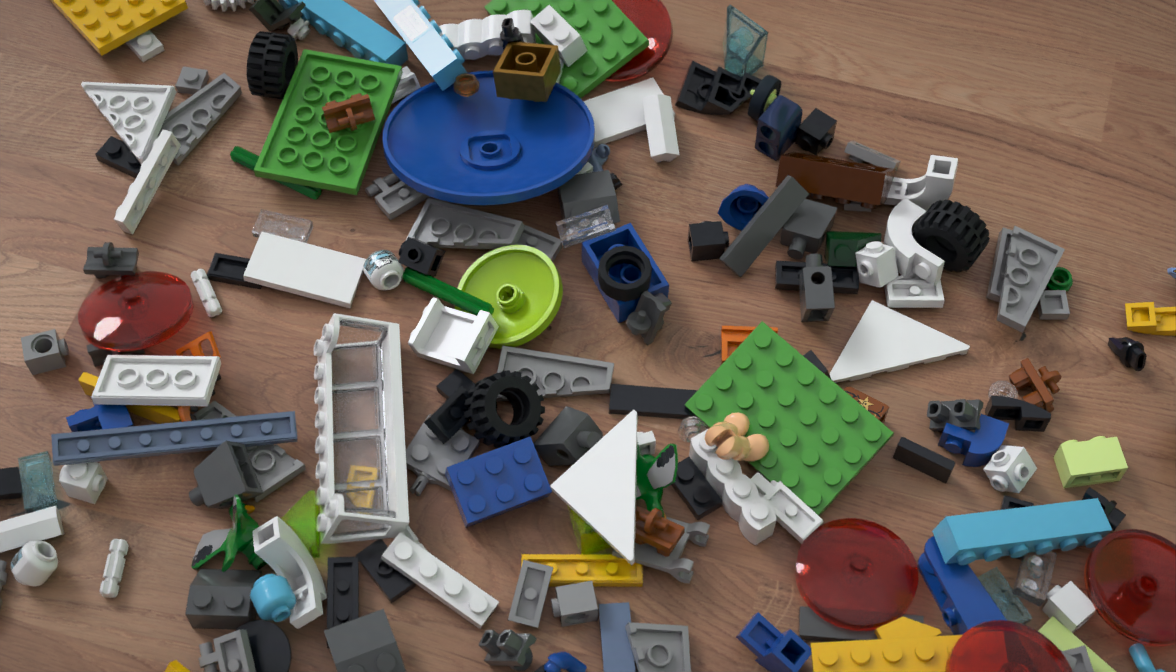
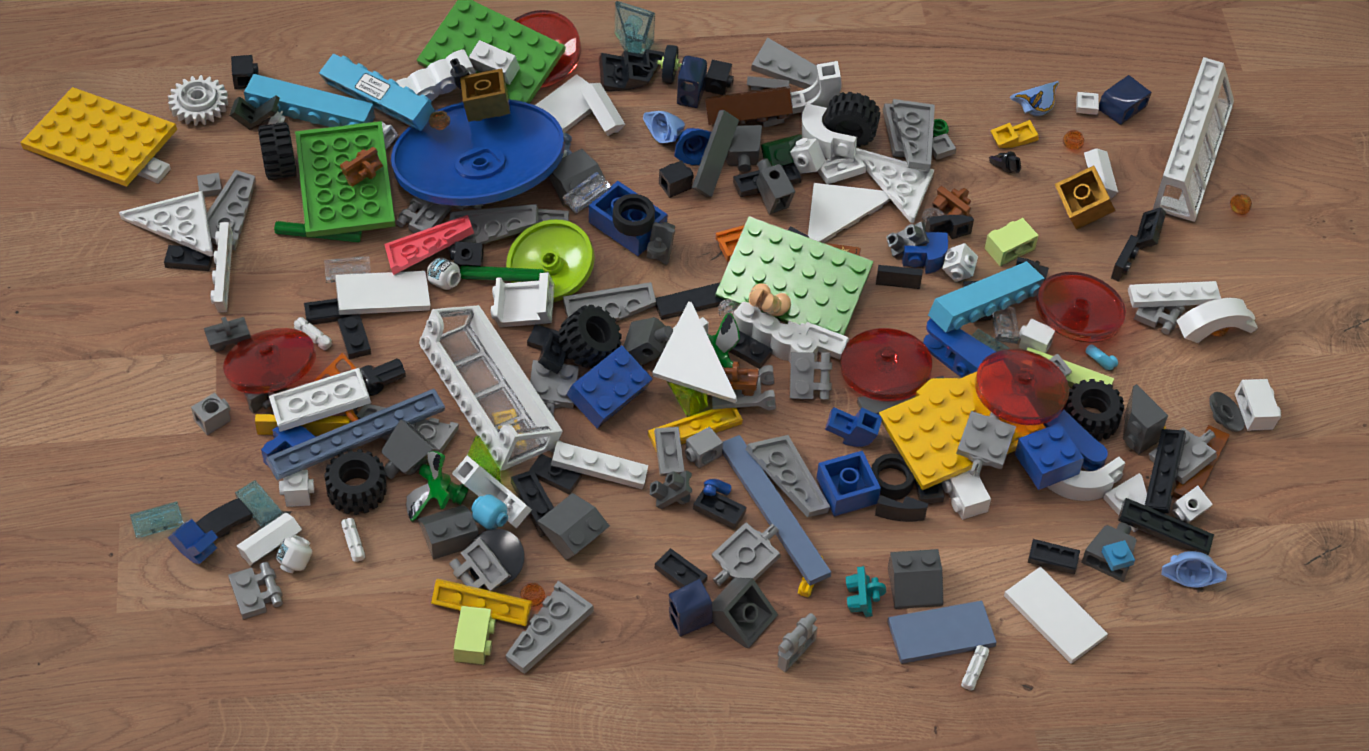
camera: 25 degrees left, 5 degrees down
(139, 478) = (353, 466): none -> black tyre
(242, 372) = (382, 375): none -> black piece
(249, 312) = (354, 336): none -> black plate
(373, 227) = (423, 244): none -> coral wing
(723, 171) = (664, 126): none -> light blue hat
(740, 552) = (802, 375): none -> light grey plate
(902, 139) = (784, 64): none -> light grey wing
(978, 336) = (901, 184): none -> white tile

